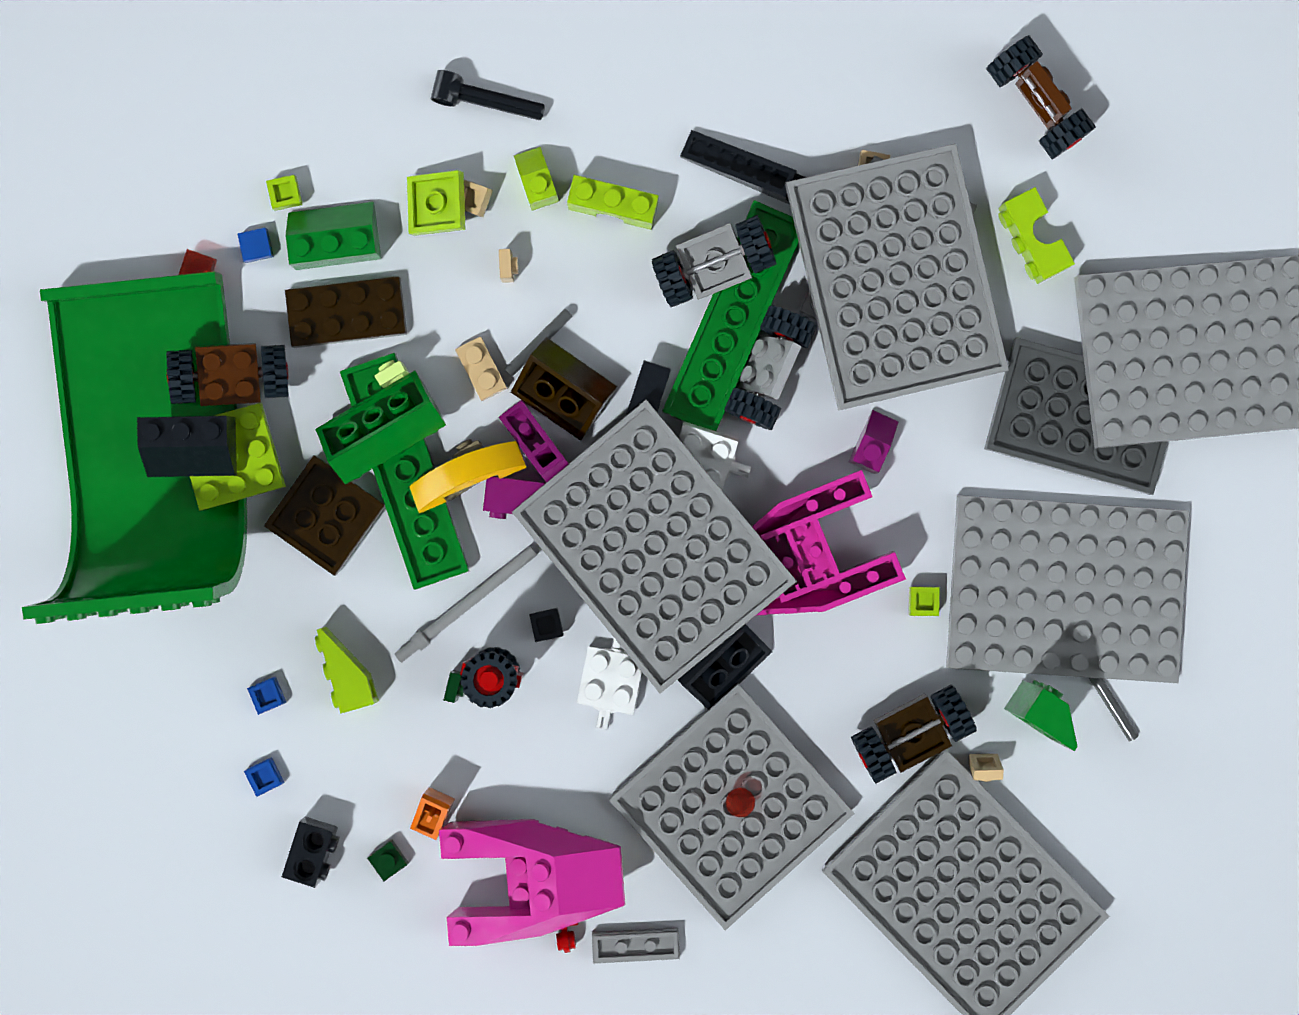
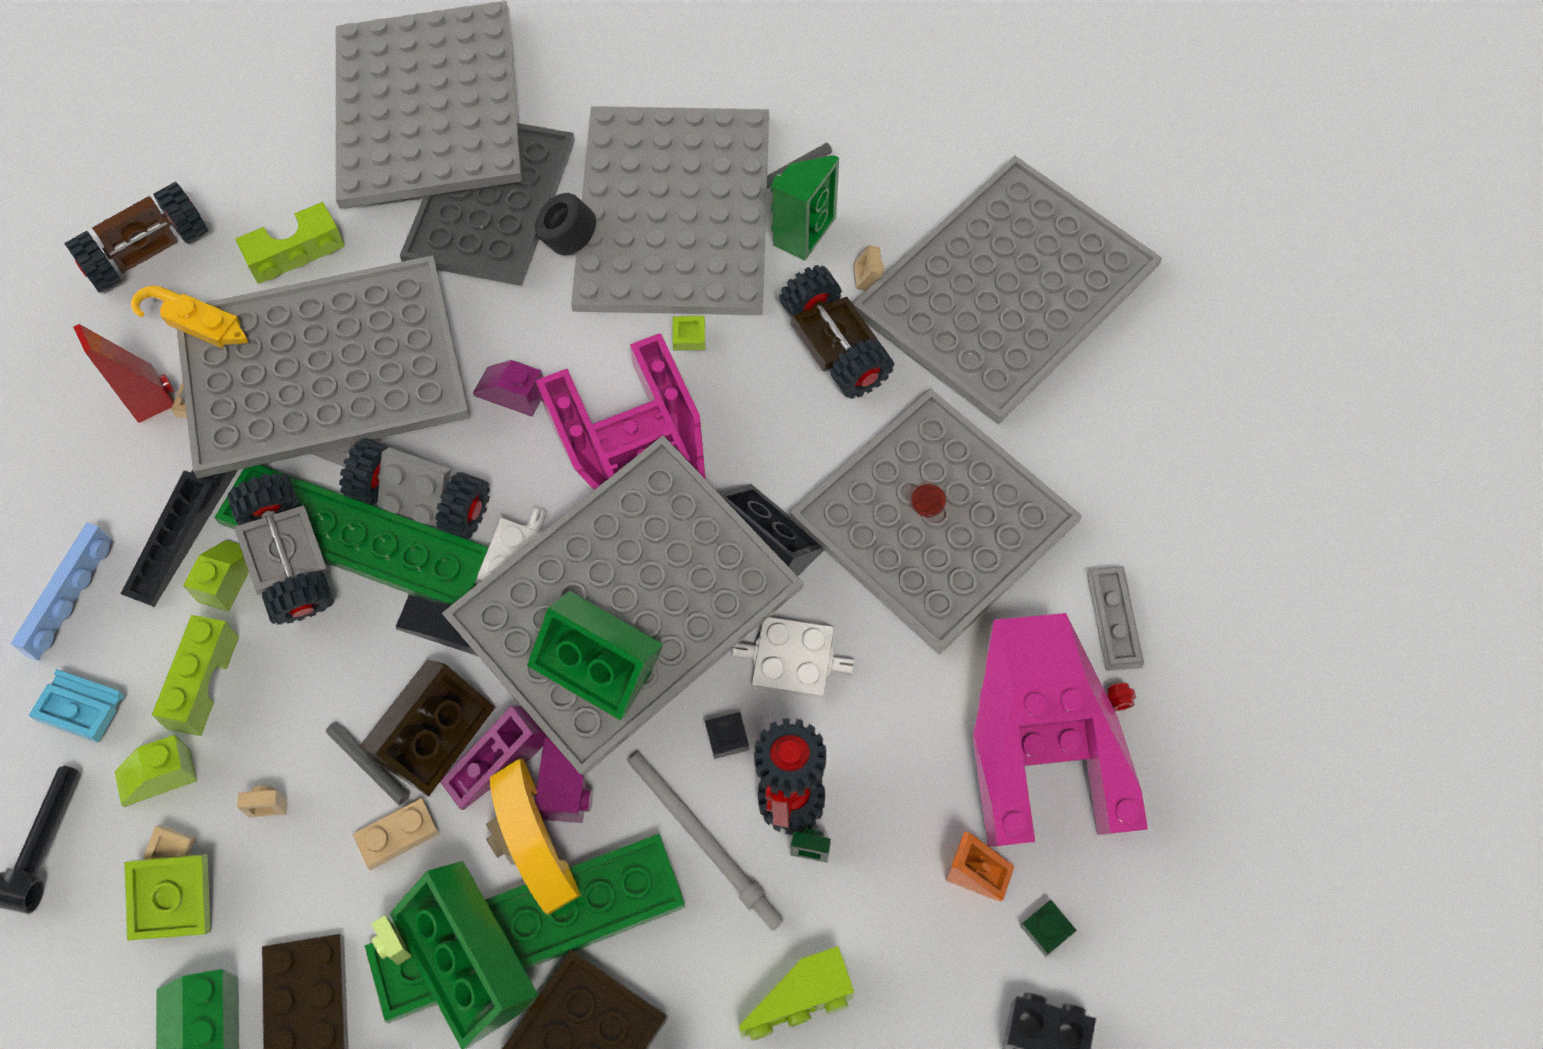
camera: 85 degrees left, 25 degrees down
(593, 110) = (77, 706): none -> medium azure plate
(601, 525) = (593, 654): none -> green slope
(682, 80) = (61, 592): none -> light blue plate
(703, 210) = (218, 576): none -> lime slope
(885, 112) = (128, 375): none -> red wedge
(944, 161) = (192, 316): none -> yellow plate
(1046, 476) = (565, 224): none -> black tyre

